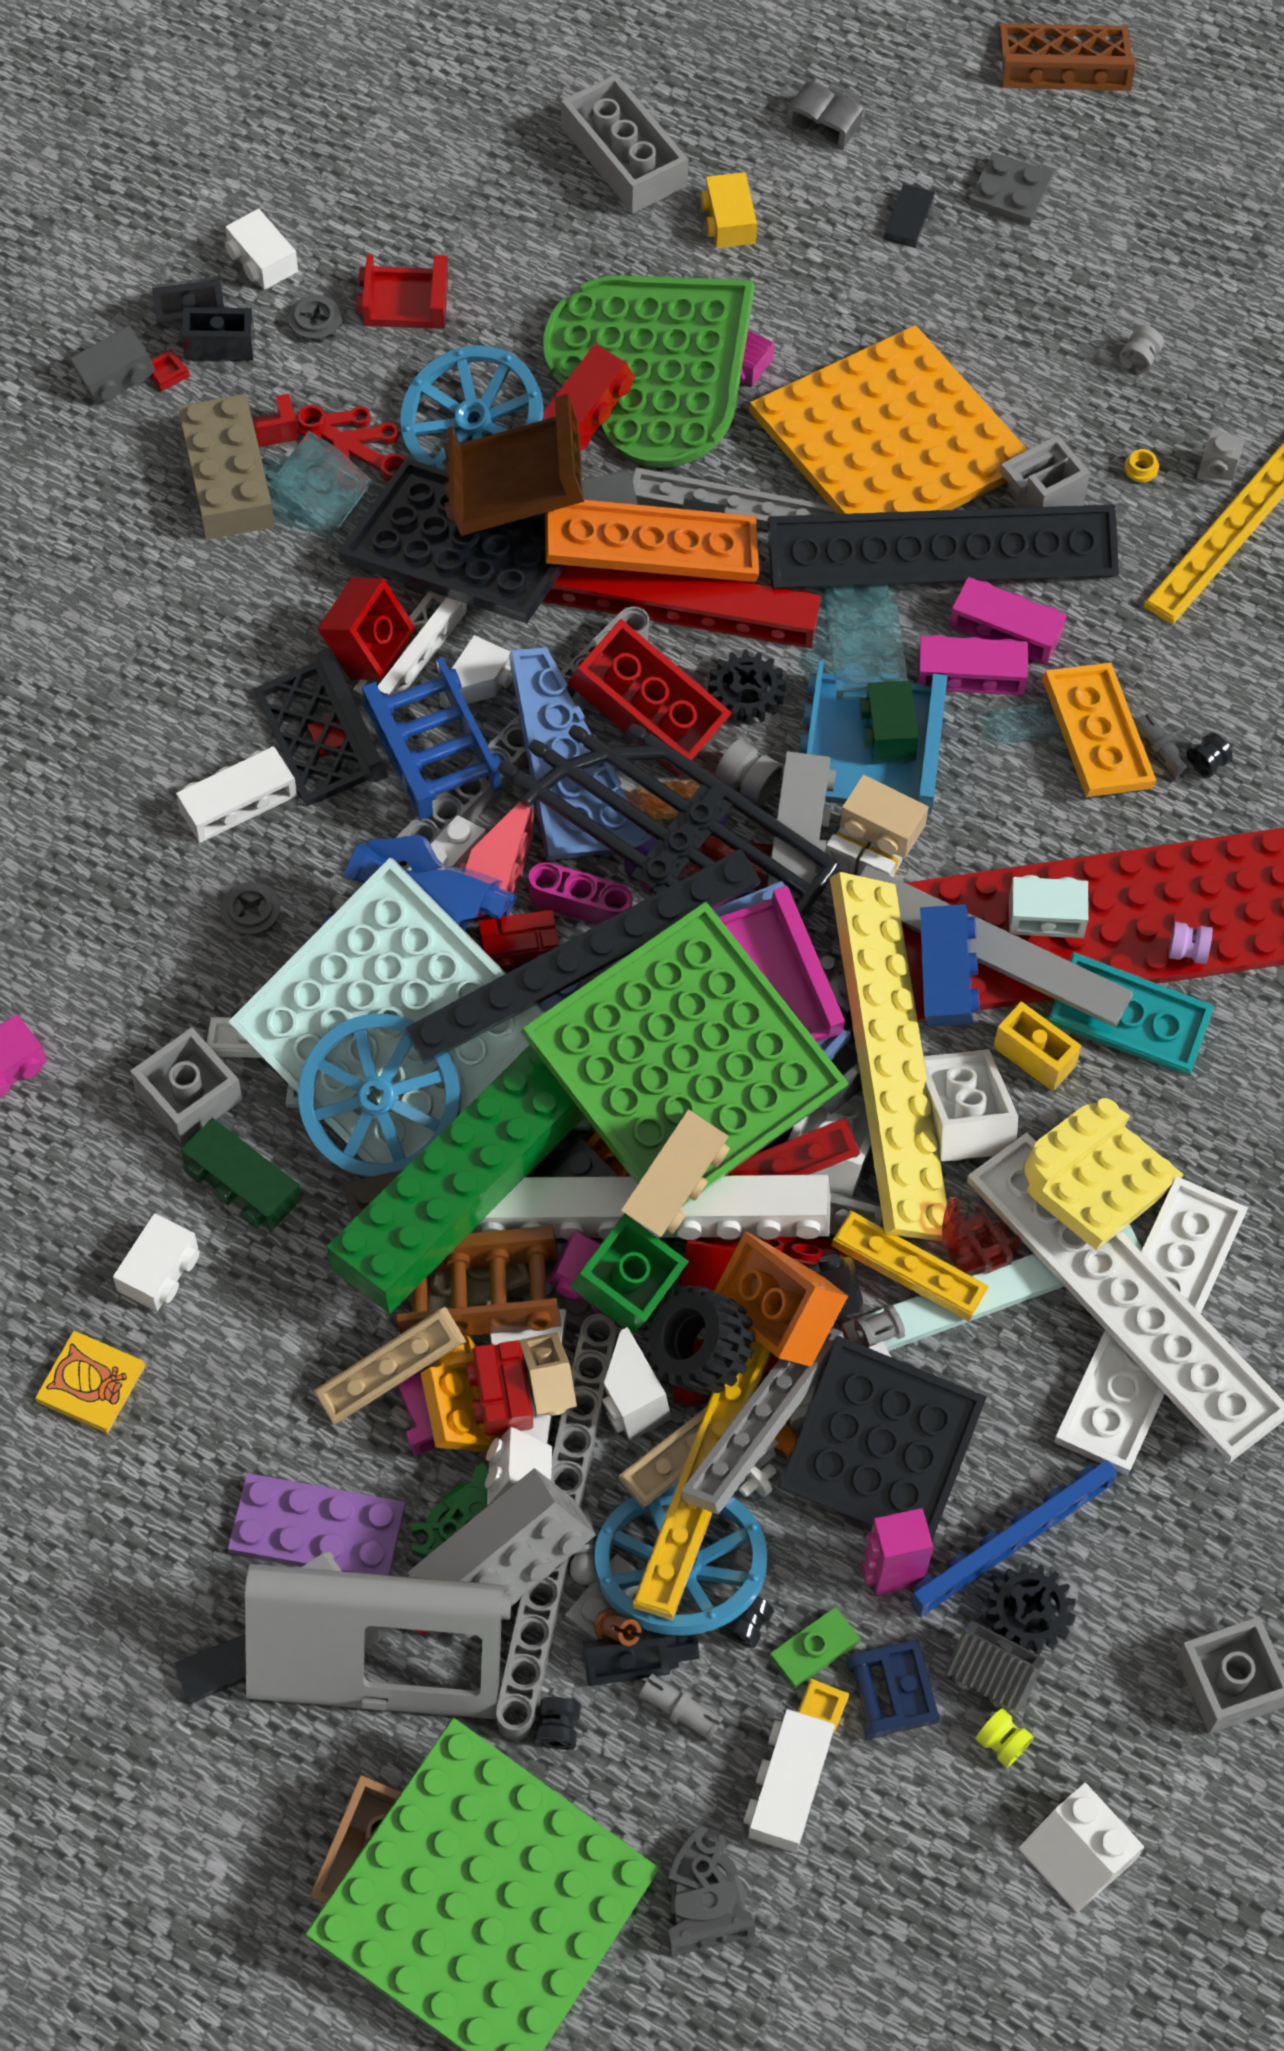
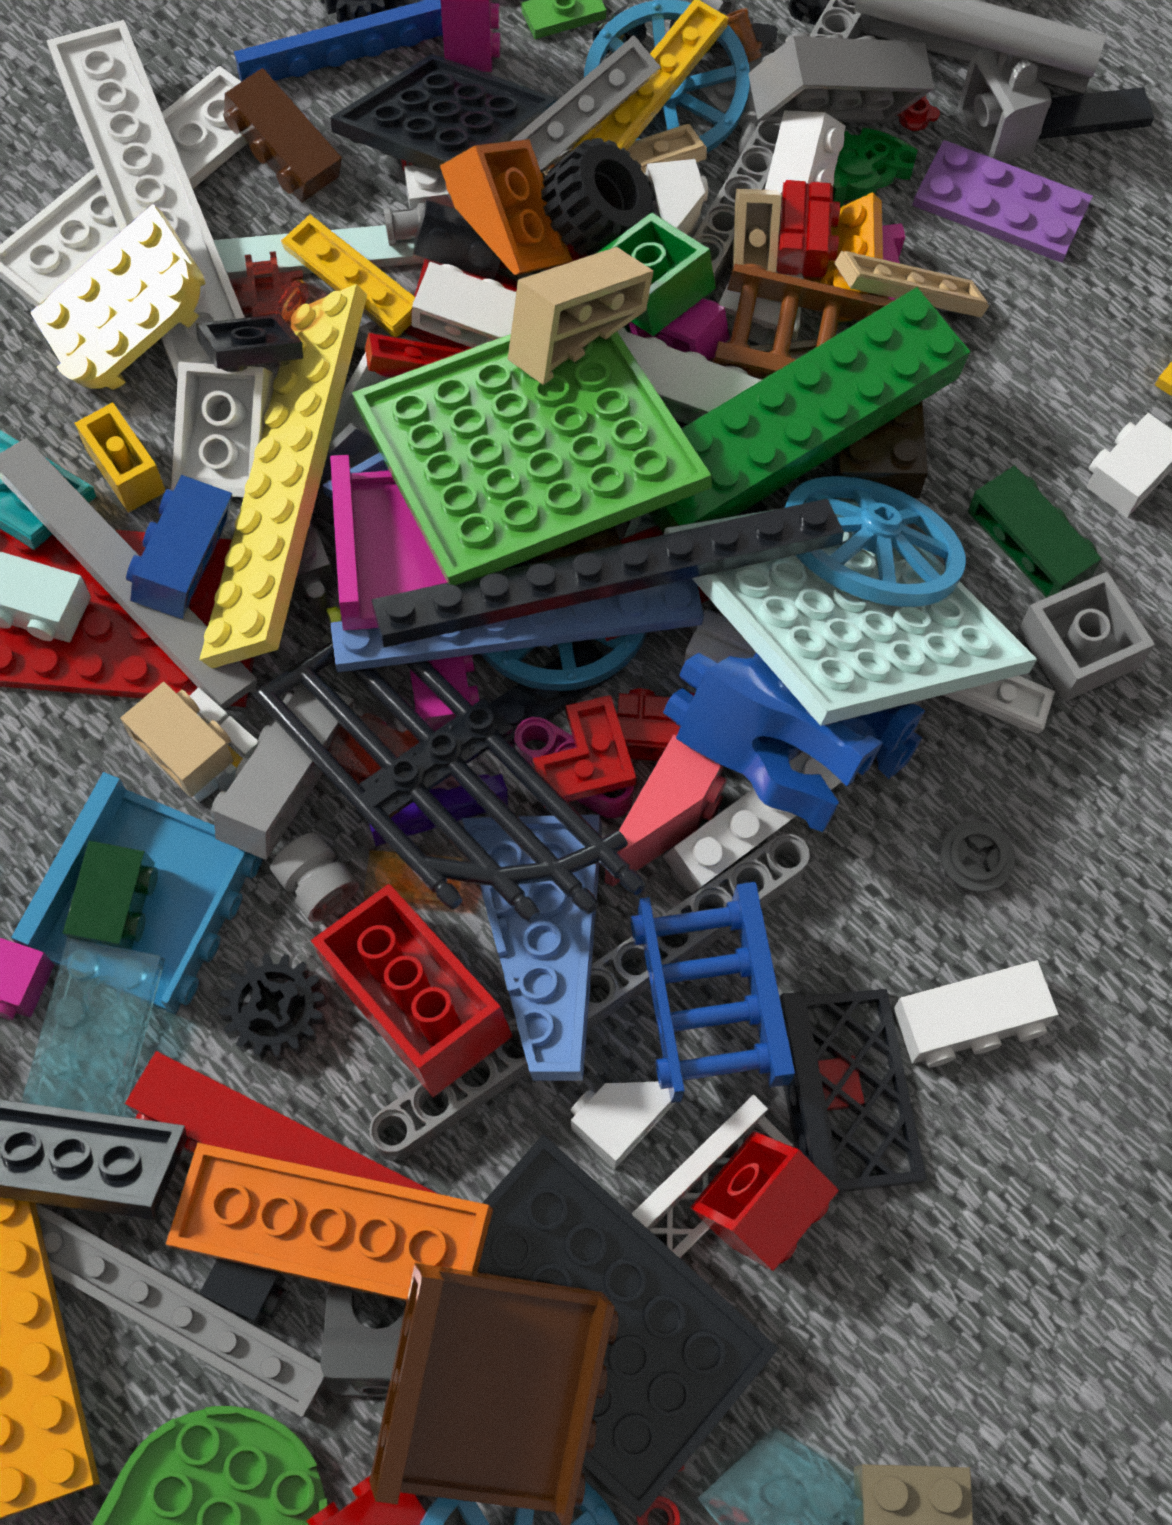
camera: 165 degrees left, 5 degrees up
(561, 878) = (600, 756): none -> red plate
(965, 1145) = (249, 341): none -> black plate
(1033, 1392) = (281, 135): none -> reddish brown brick

